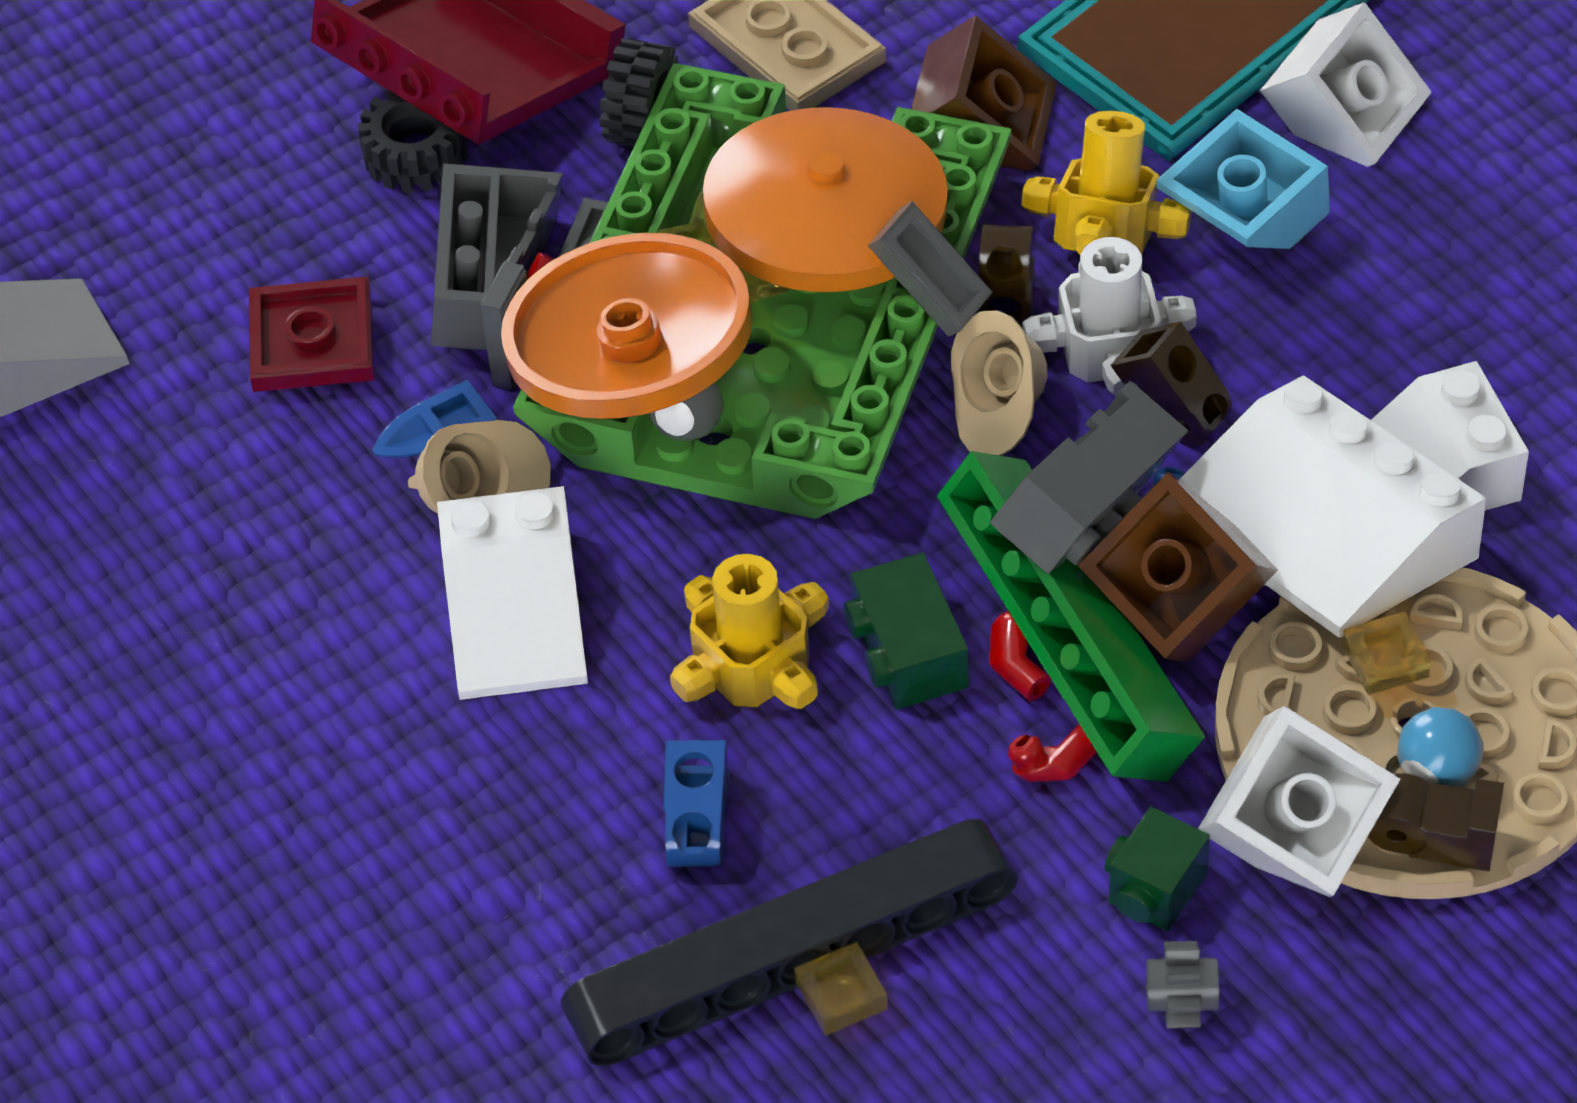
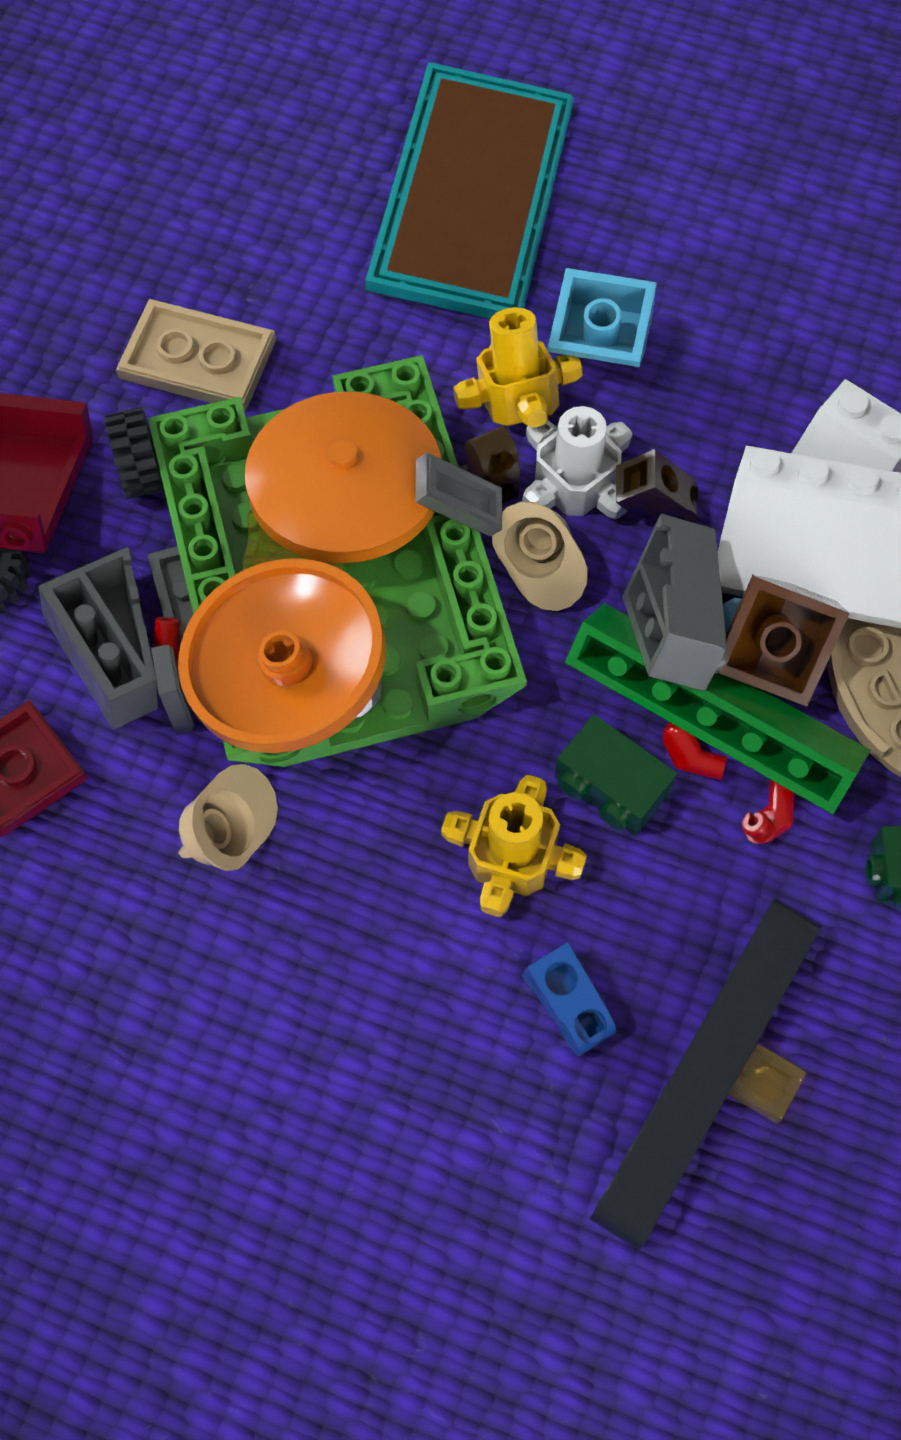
camera: 35 degrees left, 15 degrees up
(413, 428) = (165, 794): blue plate -> none
(511, 593) = (319, 902): white slope -> none
(988, 81) = (366, 329): reddish brown slope -> none
(1347, 86) = (601, 215): white slope -> none

